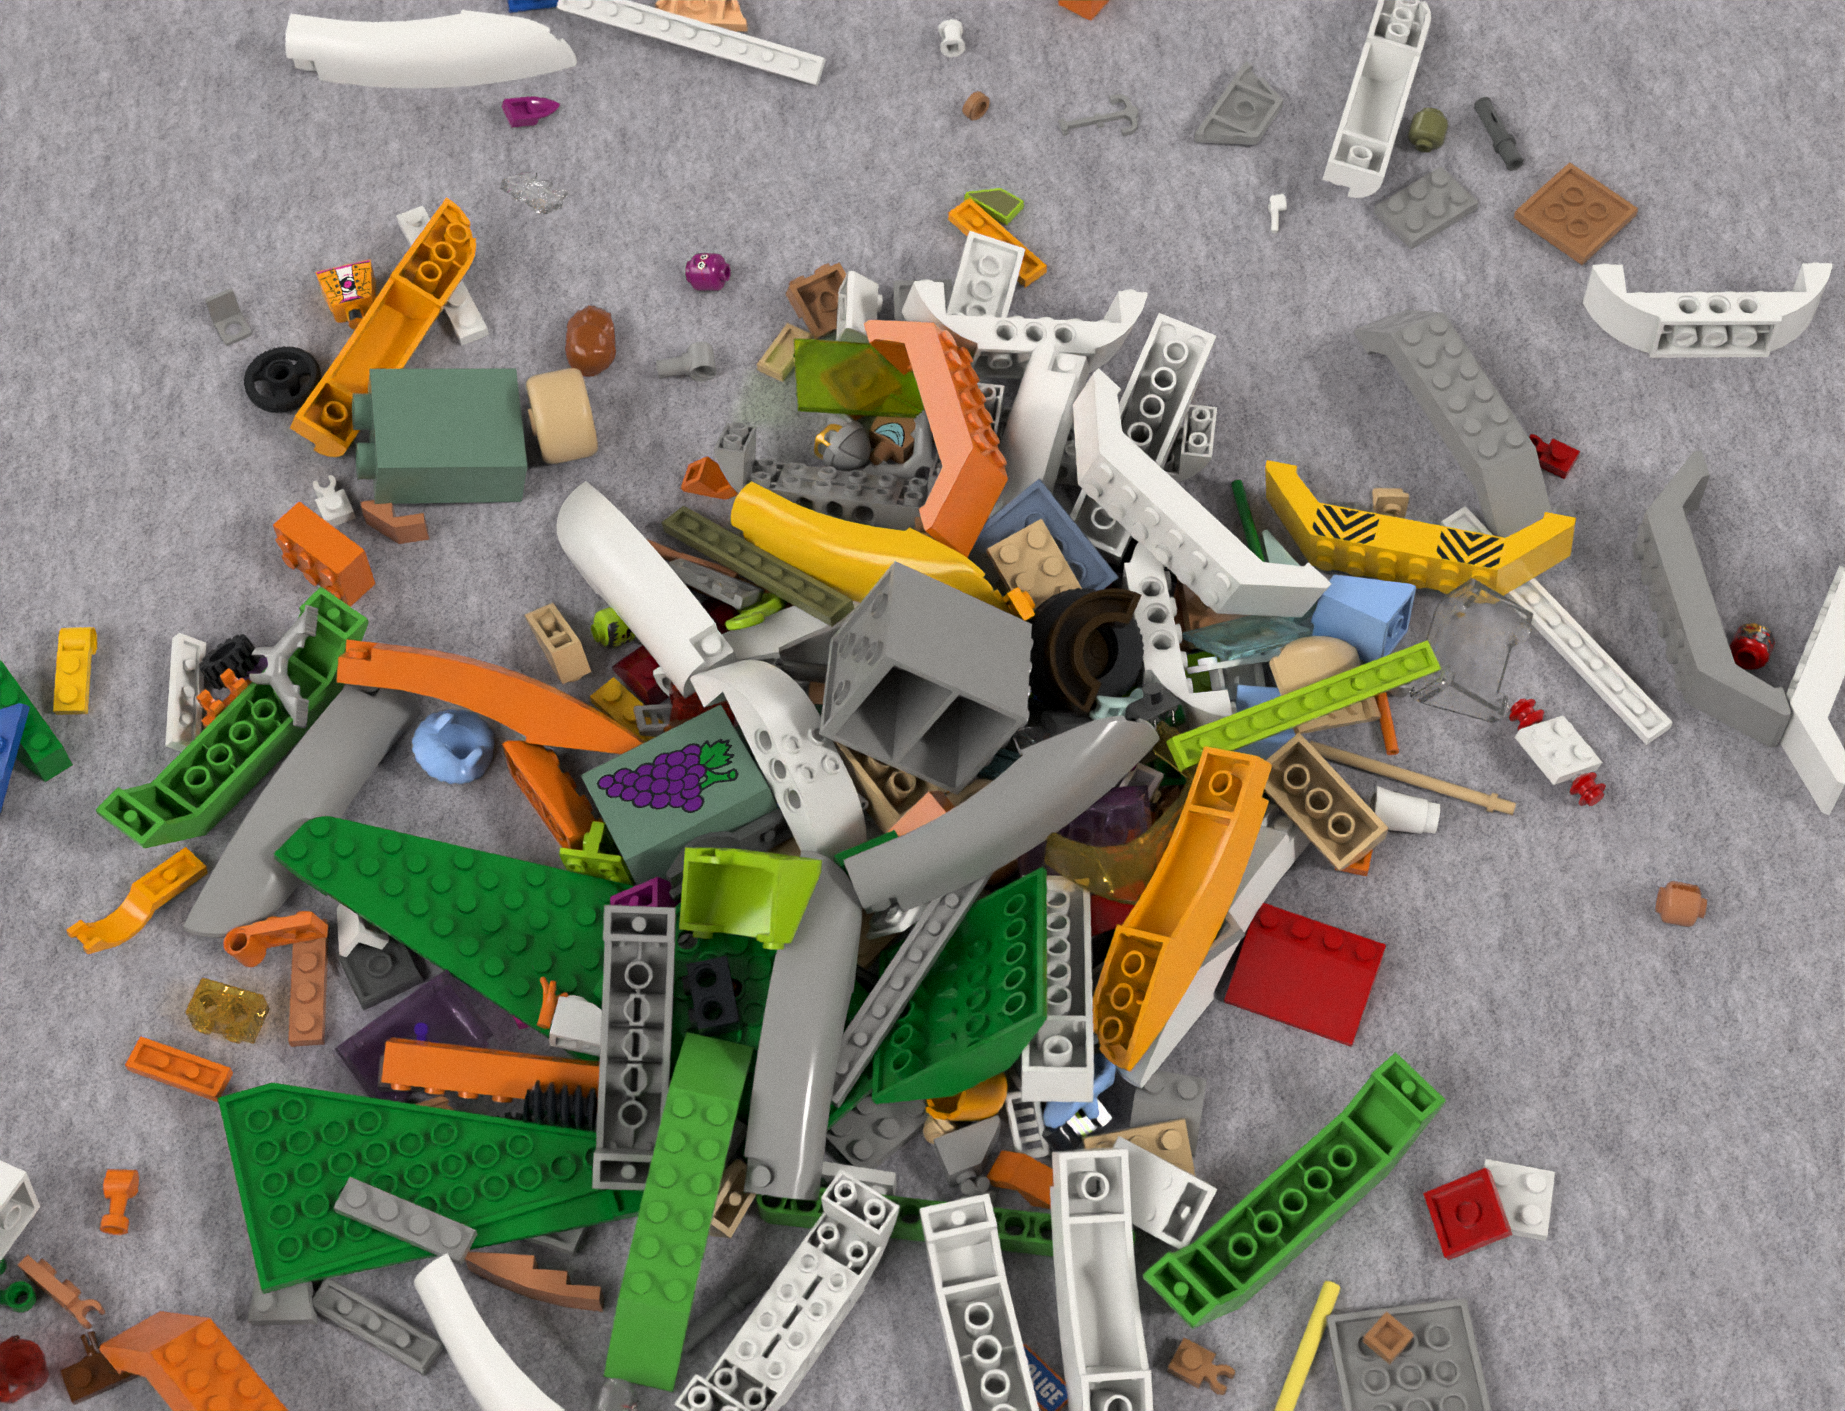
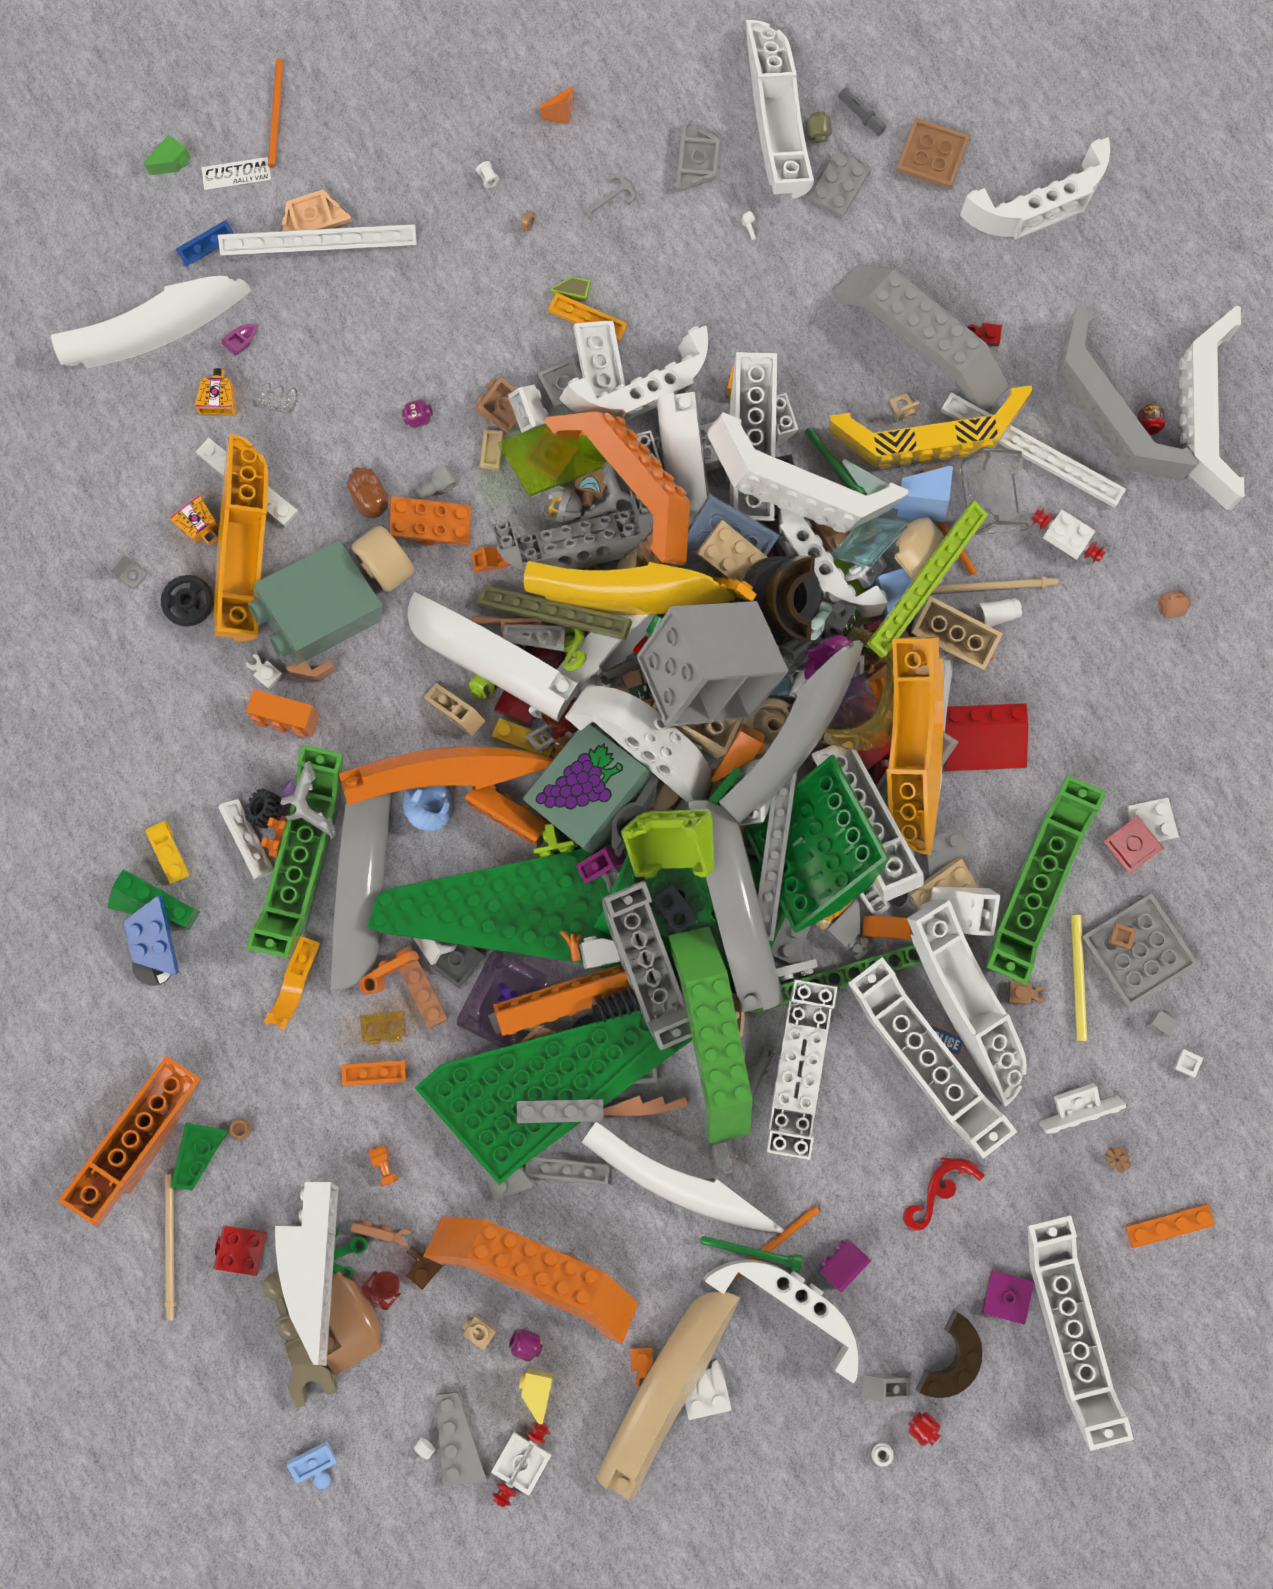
camera: 25 degrees left, 20 degrees up
(460, 162) = (216, 395): none -> light orange torso
(651, 401) = (429, 521): none -> orange plate

